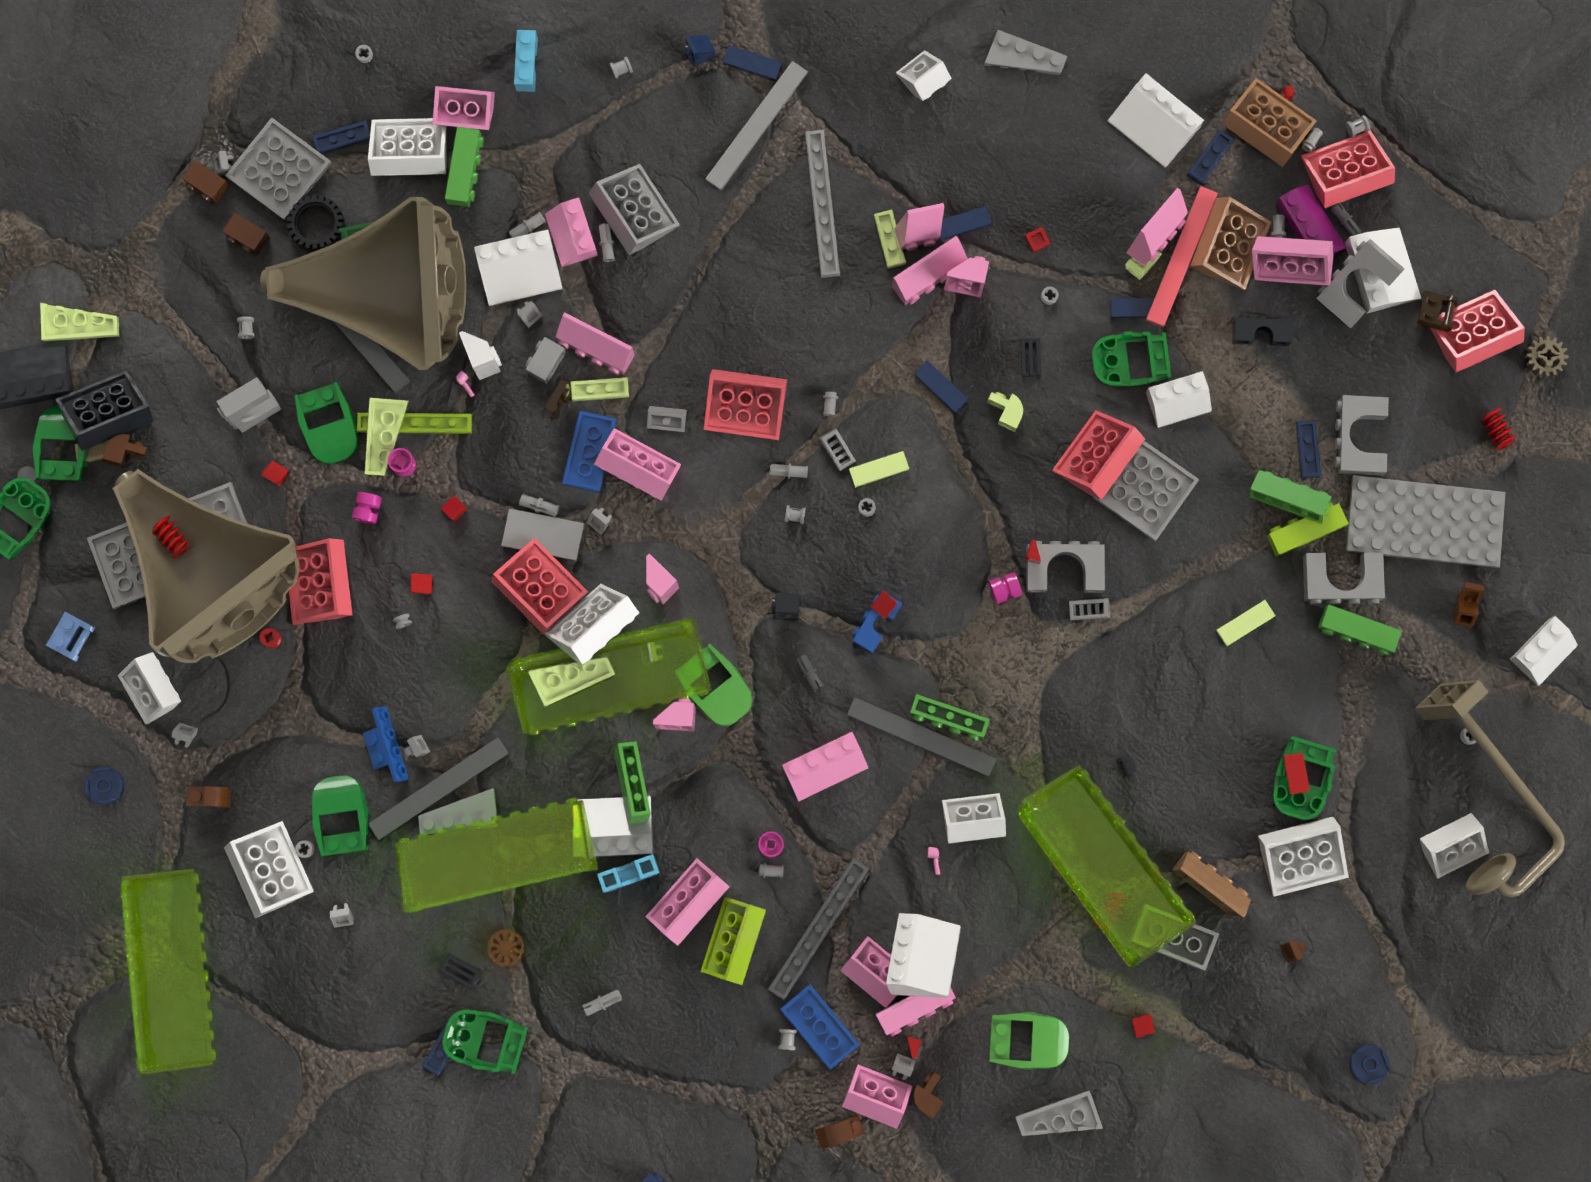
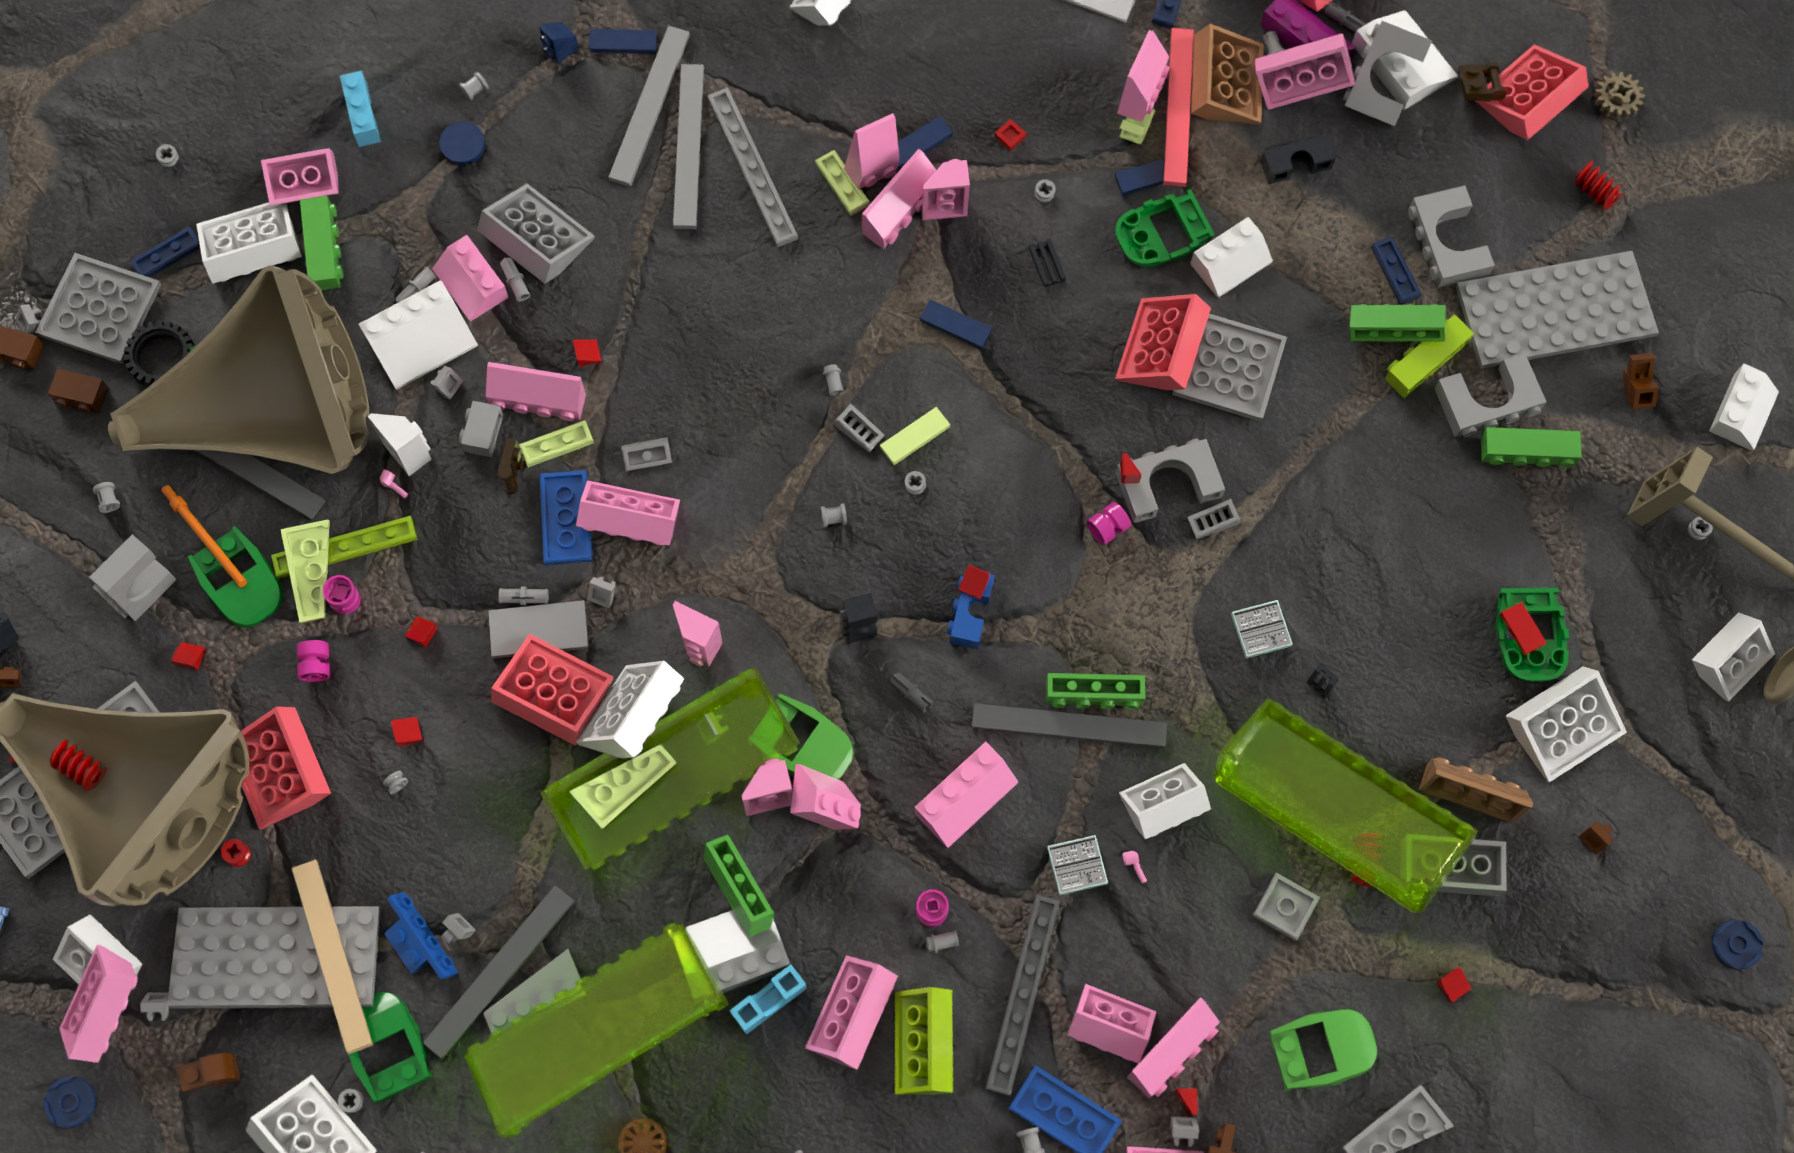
camera: 20 degrees left, 10 degrees down
(141, 723) = (97, 1005): none -> bright pink slope
(278, 726) = (265, 957): none -> light grey plate
(299, 351) = (180, 506): none -> orange bar
(319, 740) = (332, 957): none -> tan tile
(598, 113) = (462, 143): none -> dark blue tile
(645, 321) = (587, 352): none -> red slope
(716, 737) = (824, 800): none -> bright pink slope
(745, 404) = (734, 409): coral slope -> none
(777, 170) = (688, 146): none -> light grey tile
(788, 470) = (810, 468): light grey axle -> none
(891, 846) = (1077, 865): none -> light grey tile
(922, 956) = (1164, 983): white slope -> none
(1011, 409) = (1045, 322): yellowish green brick -> none
(1037, 926) = (1286, 906): none -> light grey tile
(1094, 708) = (1261, 629): none -> light grey tile
(1245, 623) = (1398, 480): yellowish green tile -> none

